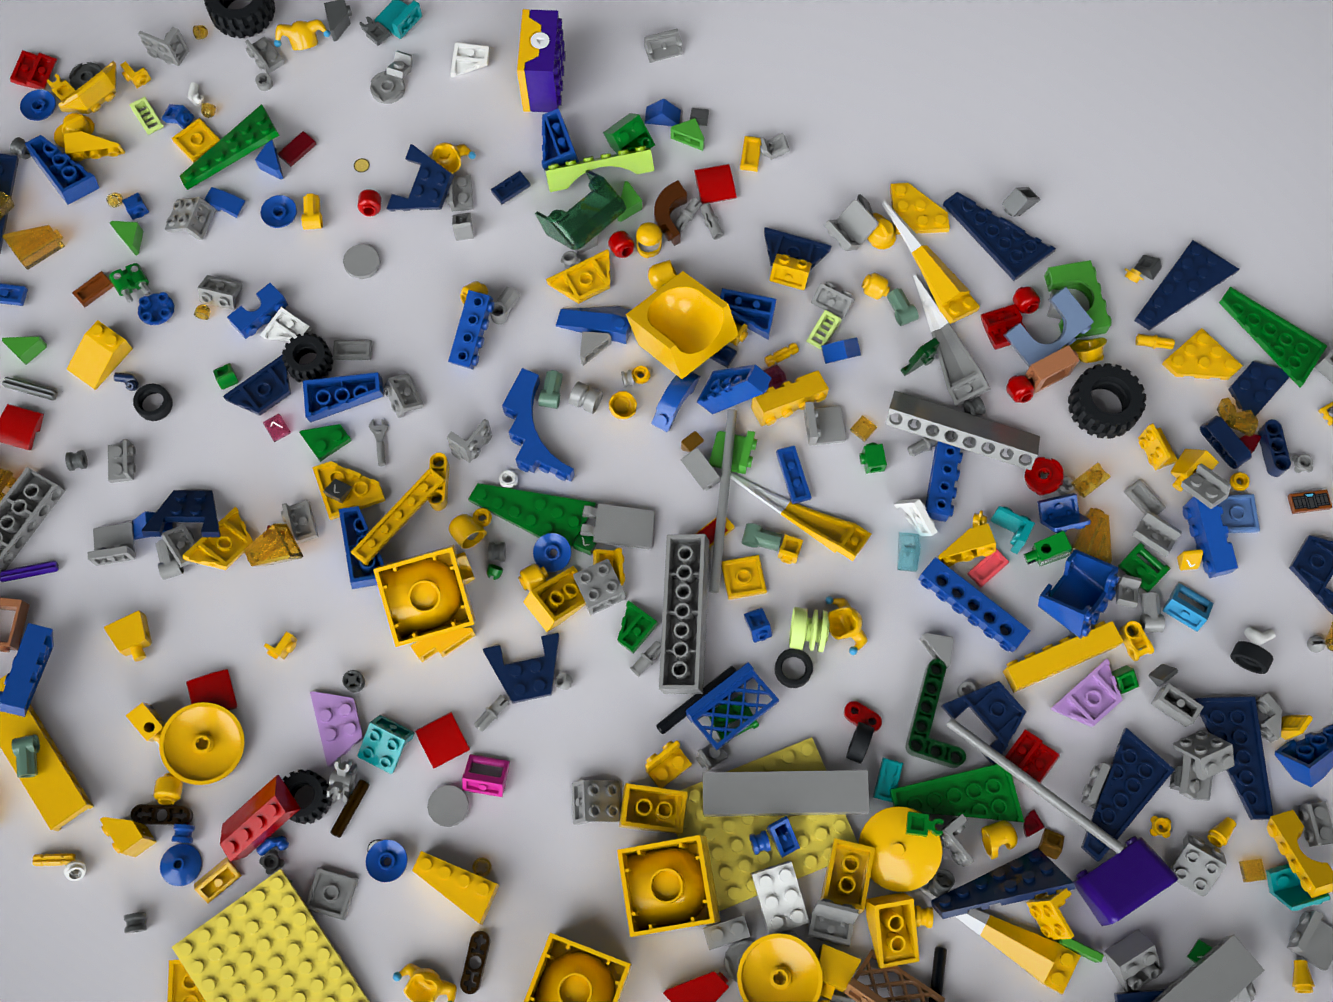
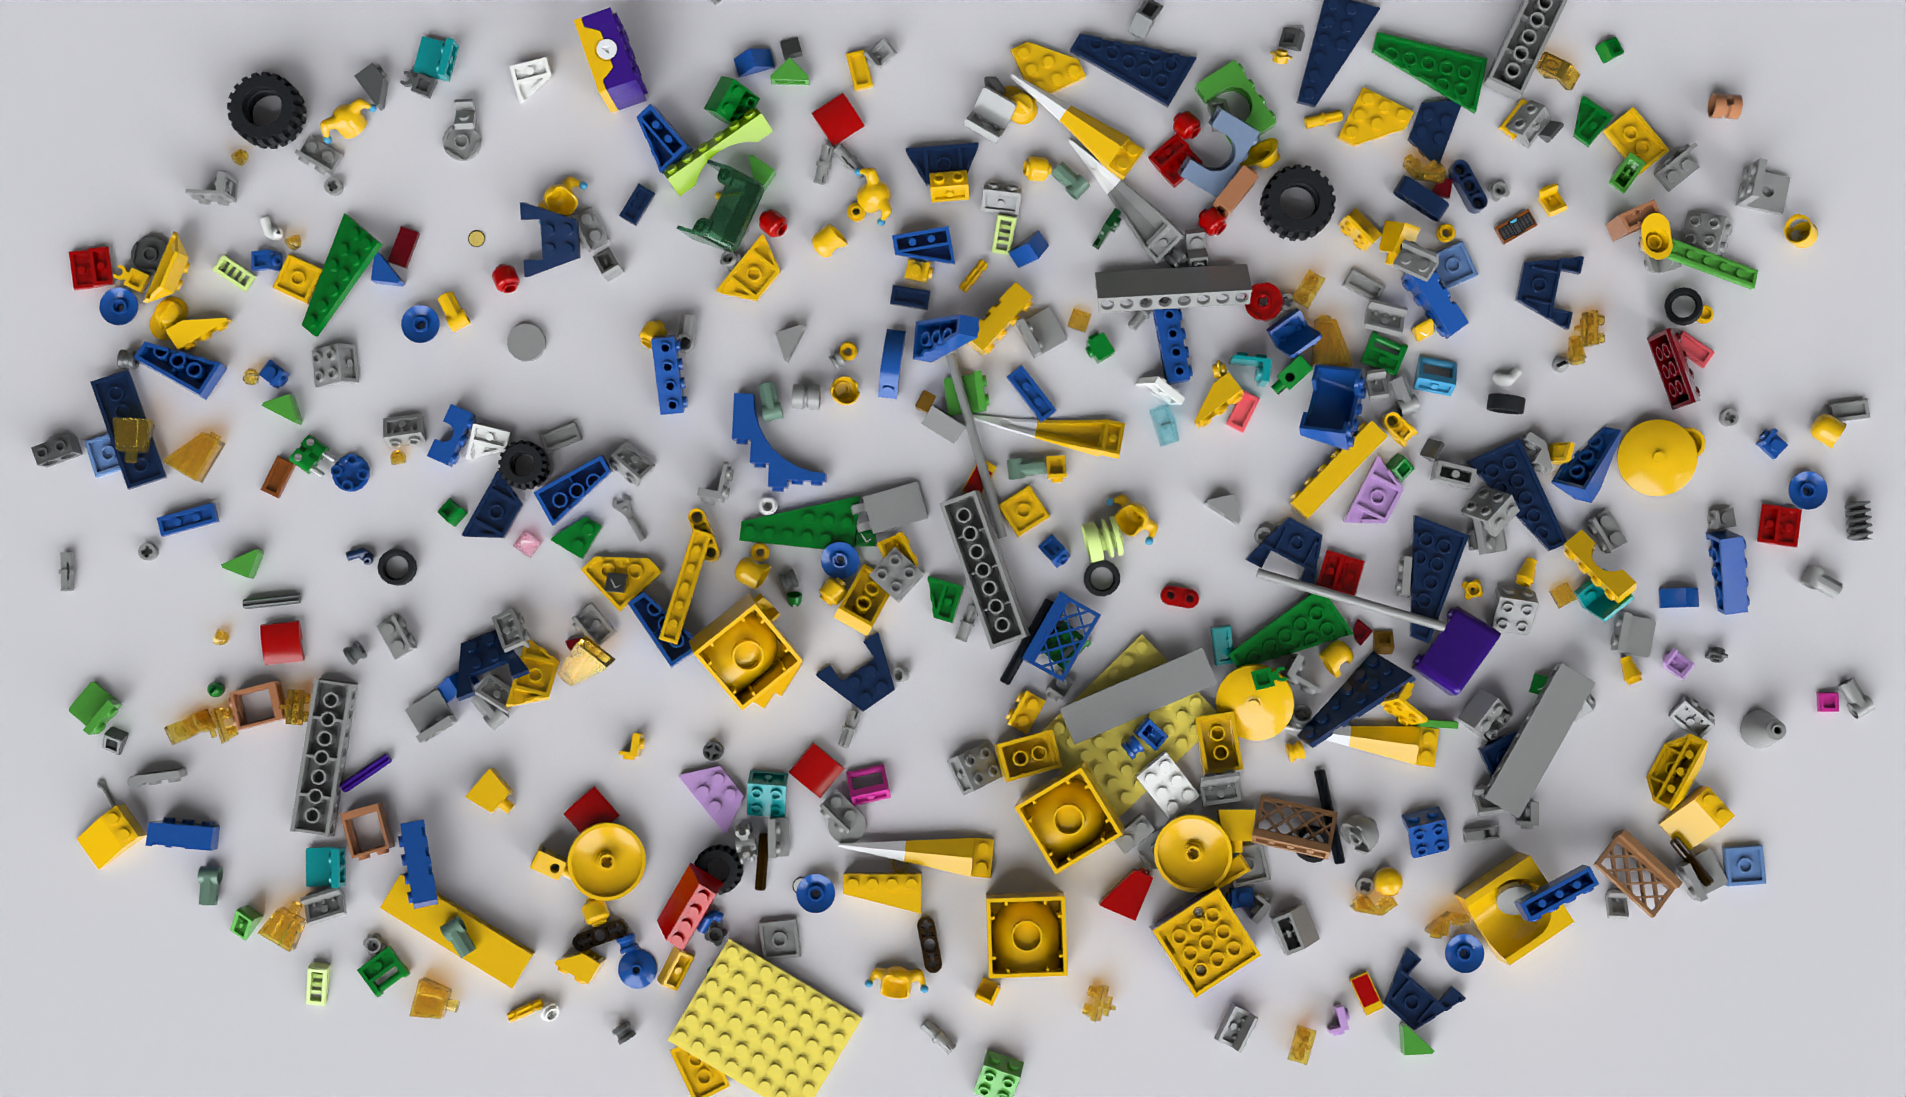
camera: 20 degrees left, 15 degrees up
(98, 355) = (320, 542): yellow slope -> none
(138, 78) = (205, 236): yellow bracket -> none
(223, 494) = (511, 630): none -> light grey bracket
(224, 201) = (360, 334): blue slope -> none
(375, 789) = (778, 837): none -> light grey bracket
(447, 788) = (841, 811): none -> light grey bracket
(543, 882) = (957, 855): none -> yellow plate
(598, 320) = (785, 311): blue wedge -> none
(648, 235) = (797, 205): yellow helmet -> none
(667, 201) = (799, 156): reddish brown arch -> none
(682, 324) = (870, 290): yellow piece -> none
(699, 267) = (856, 218): none -> yellow plate
(721, 253) = (874, 194): none -> yellow piece
(777, 375) = (975, 302): clear pink slope -> none
(860, 742) = (1186, 623): black tyre -> none
(893, 929) = (1273, 772): yellow slope -> none
(920, 715) = (1228, 575): dark green beam -> none
(985, 606) = (1289, 463): blue brick -> none
(997, 405) = (1196, 247): none -> light grey slope

